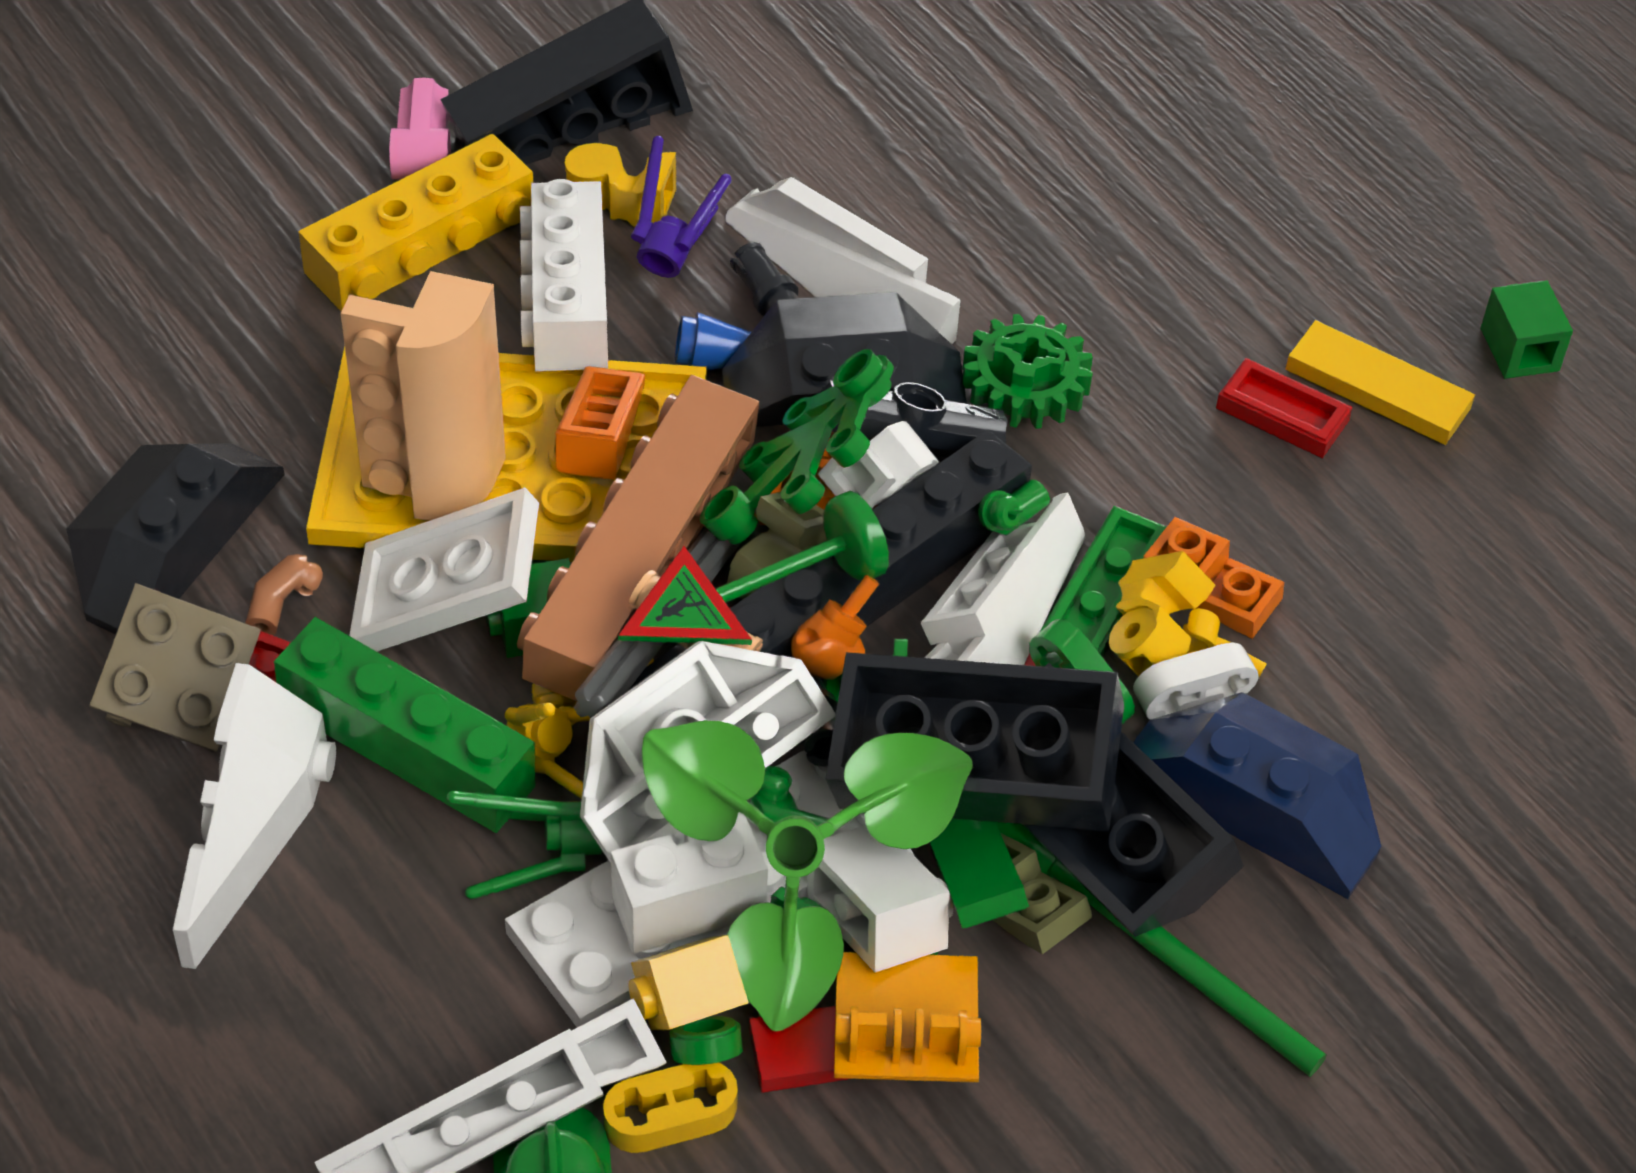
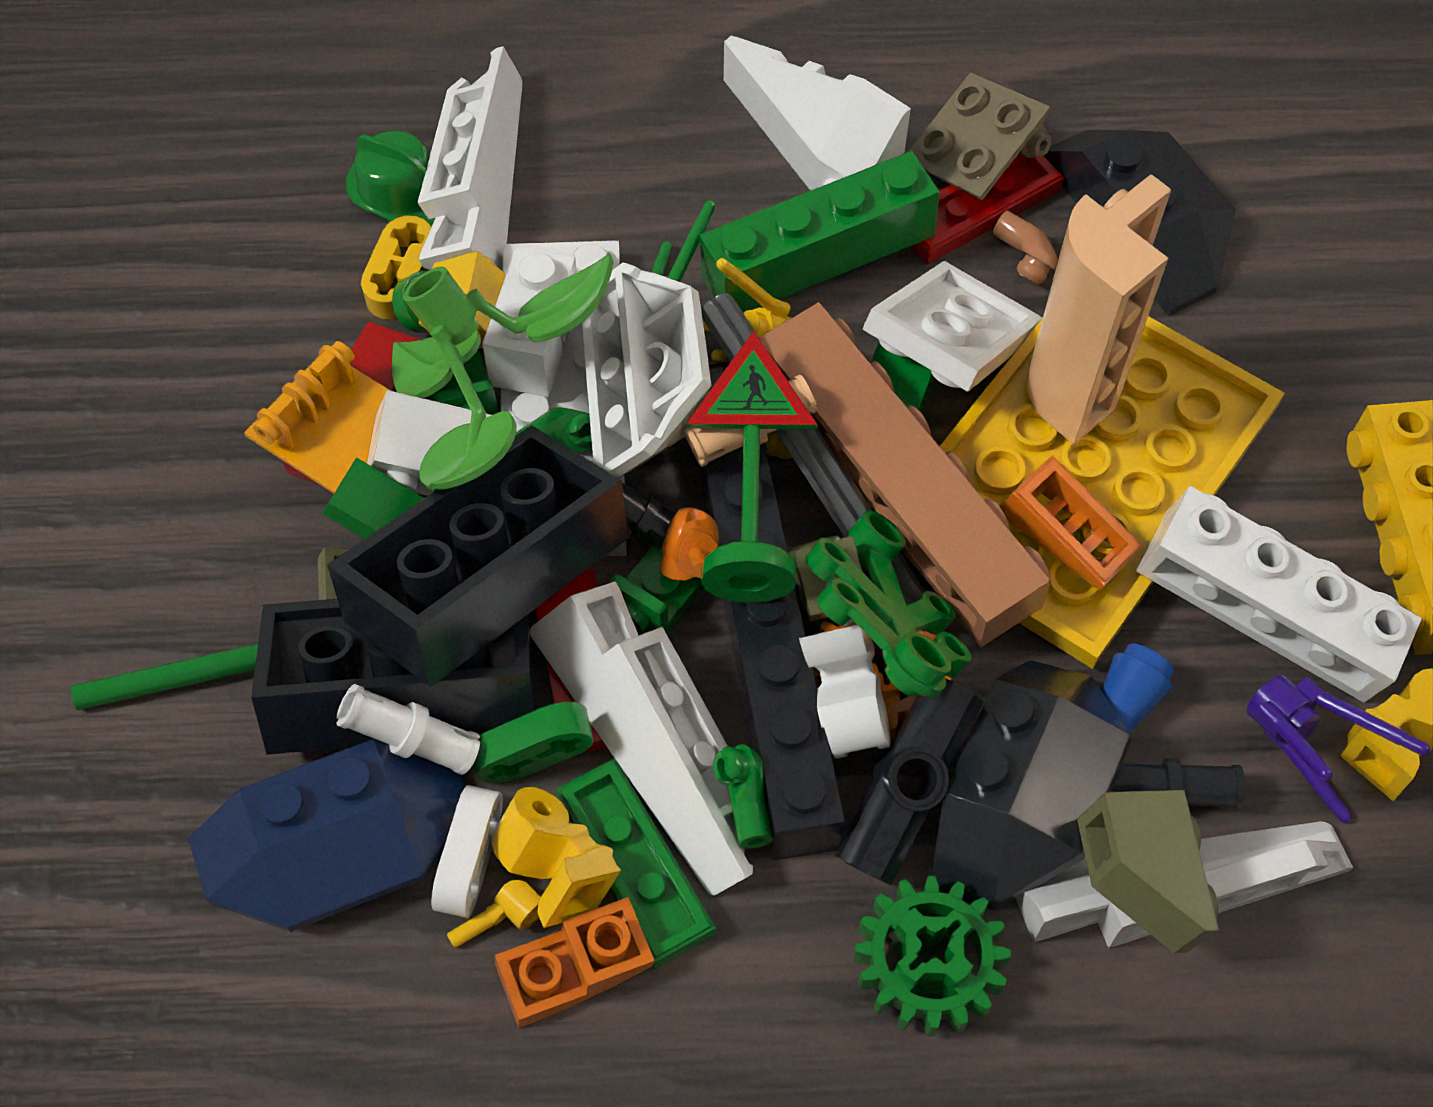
camera: 125 degrees right, 10 degrees up
(878, 239) = (1149, 864): none -> olive slope
(1161, 736) = (408, 729): none -> white pin

